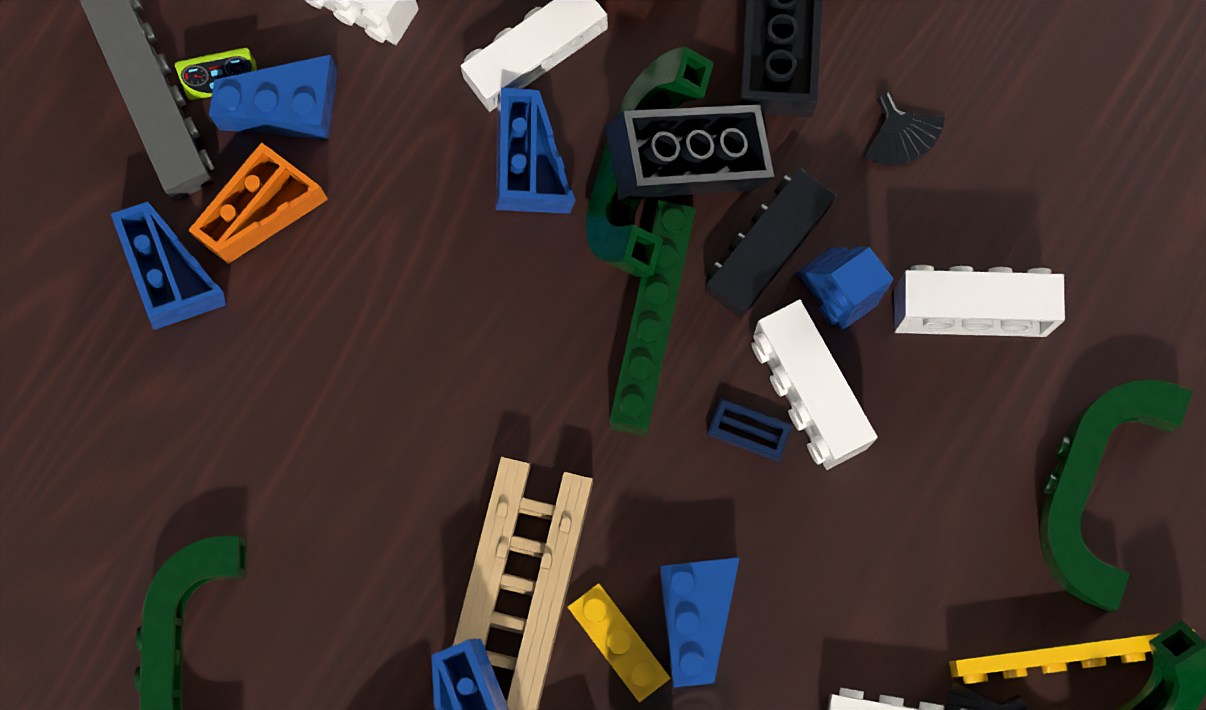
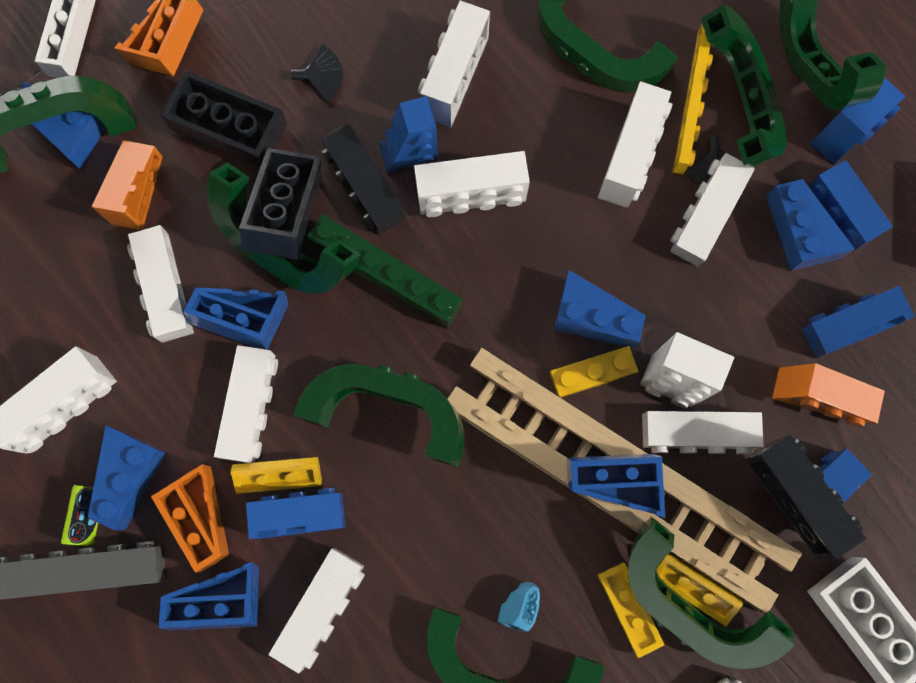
camera: 75 degrees left, 0 degrees up
(195, 395) = (316, 610): none -> white brick
(276, 648) = (520, 608): none -> dark azure rock
(300, 324) = (295, 514): none -> blue wedge
(342, 282) = (276, 475): none -> yellow plate
(416, 211) = (245, 405): none -> white brick
(470, 467) = (335, 384): none -> dark green arch
(746, 444) = (467, 255): dark blue tile -> none
(957, 589) = (636, 145): none -> white brick

